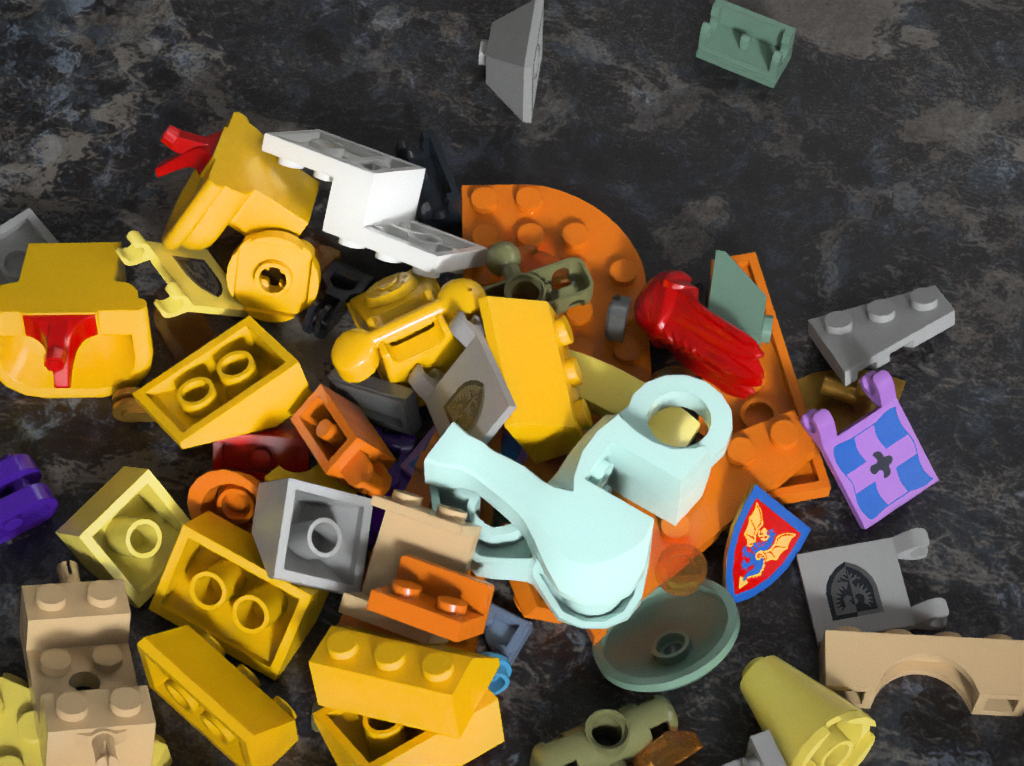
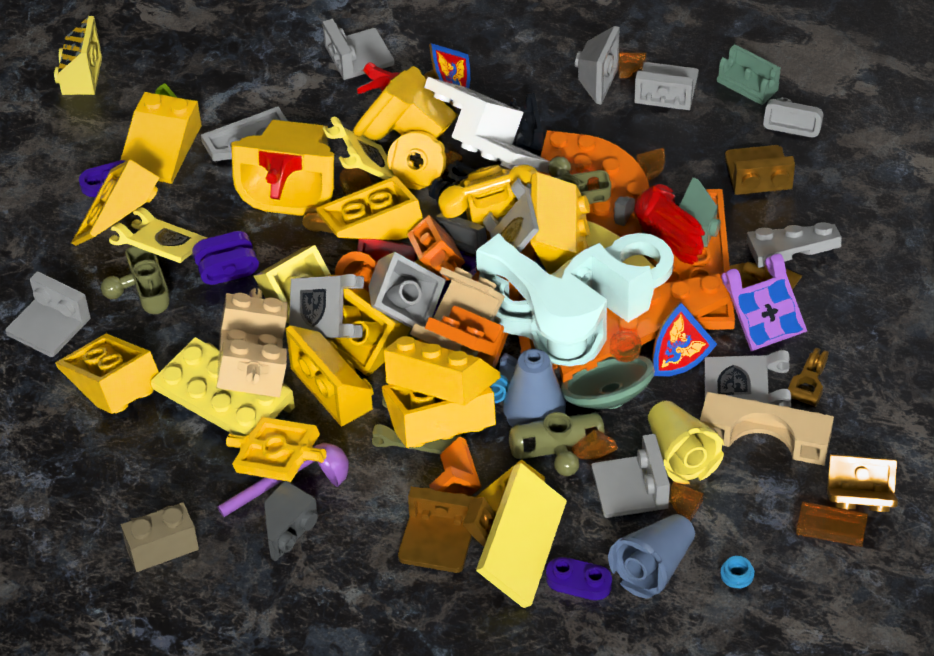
camera: 15 degrees right, 10 degrees down
(132, 87) = (355, 50): none -> light grey bracket
(177, 579) = (318, 305): none -> light grey flag
(287, 99) = (449, 66): none -> shield
(554, 682) = (533, 390): none -> sand blue cone
(561, 46) = (630, 63): none -> clear orange tile
(626, 78) = (666, 85): none -> light grey bracket
(634, 216) = (652, 162): none -> clear orange tile
(801, 205) = (760, 169): none -> pearl gold bracket
(829, 108) = (793, 117): none -> light grey piece
(966, 535) = (807, 376): none -> pearl gold piece

